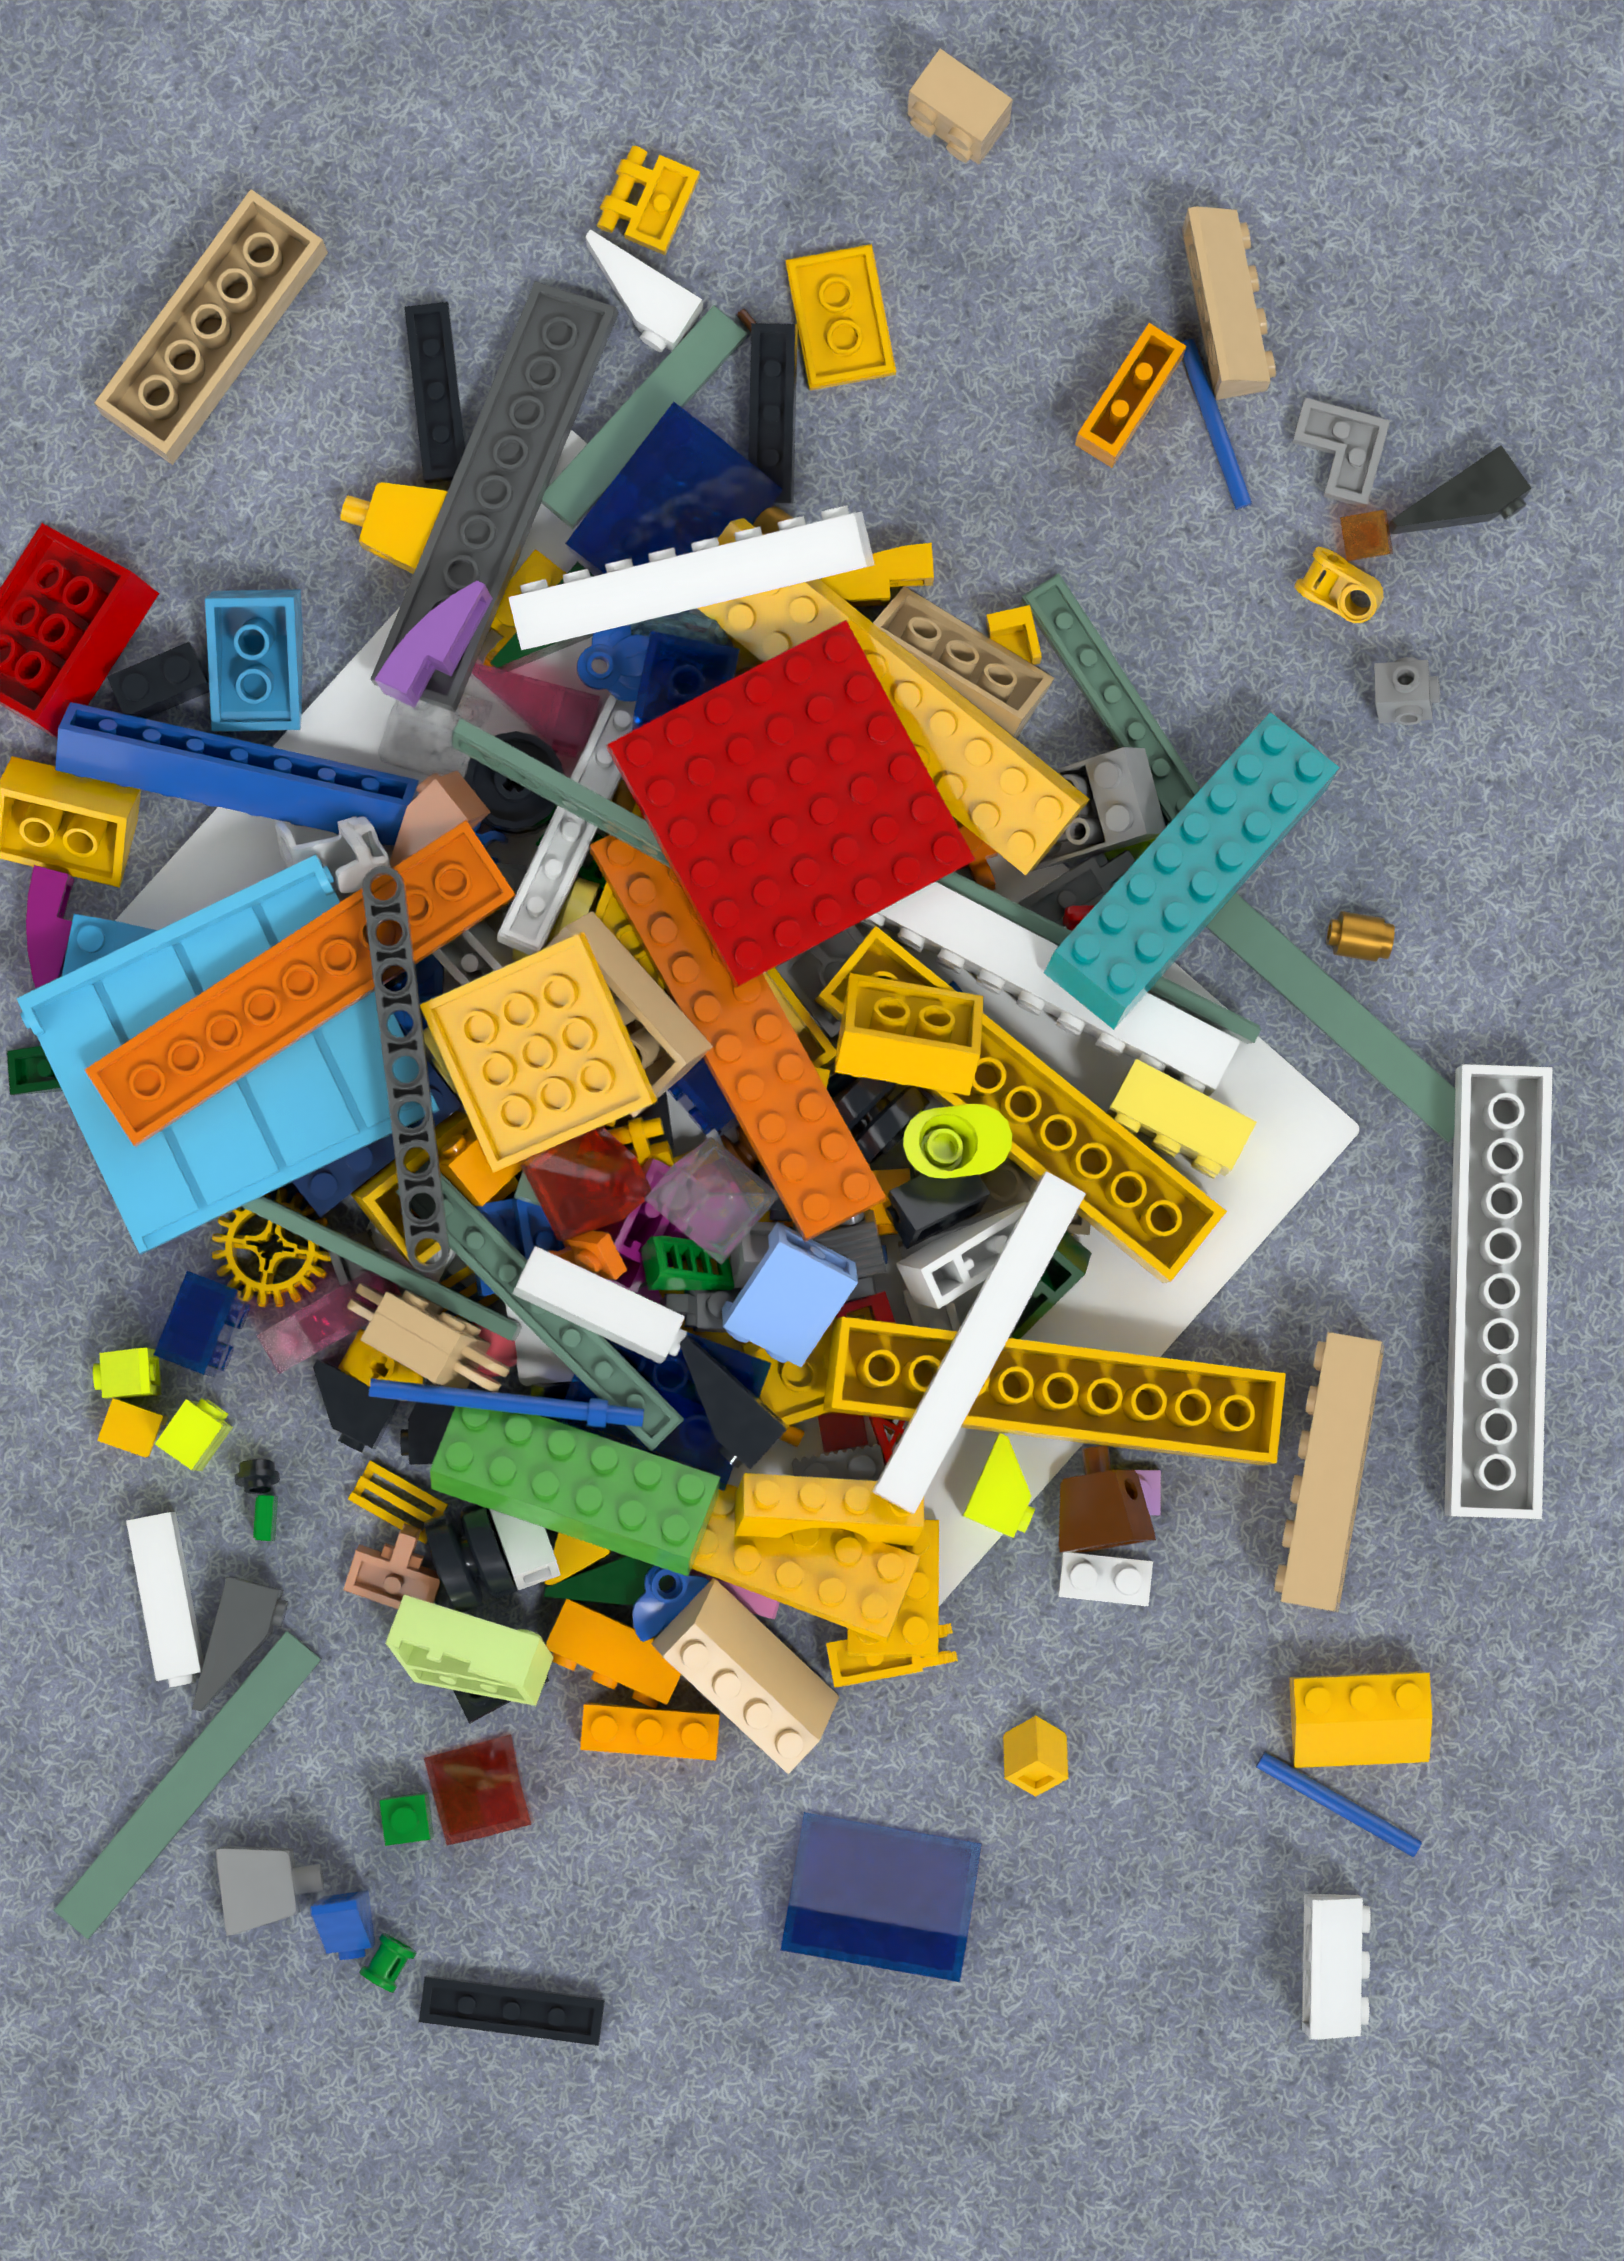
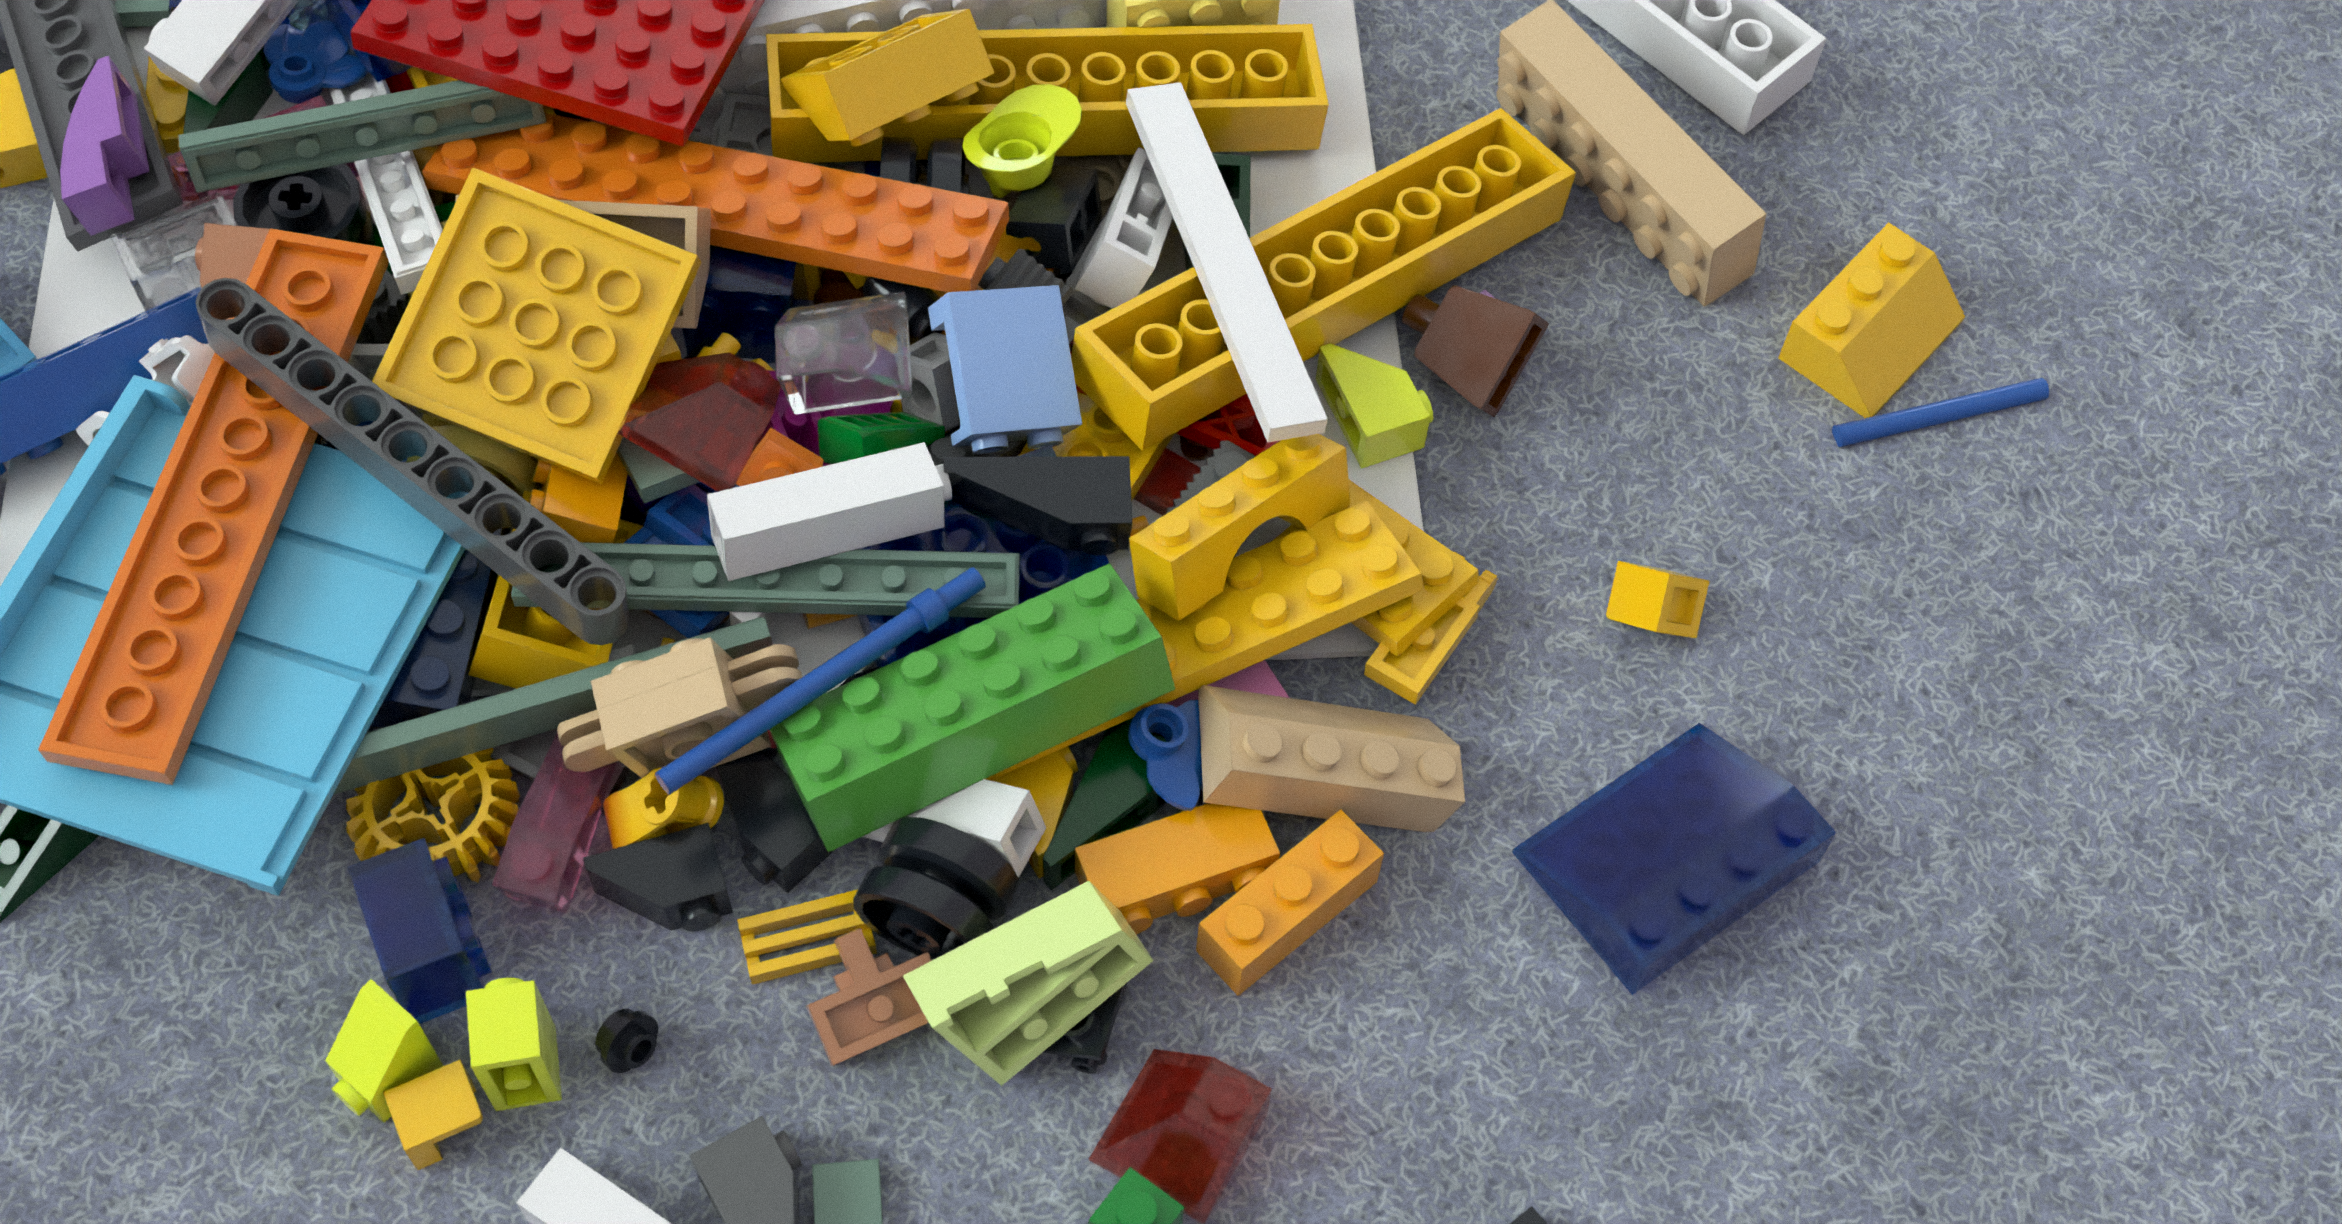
camera: 50 degrees left, 25 degrees down
(265, 1518) = (677, 1070): green tile -> none
(1105, 1579) = (1540, 413): white plate -> none
(1334, 1966) = (2102, 527): white slope -> none

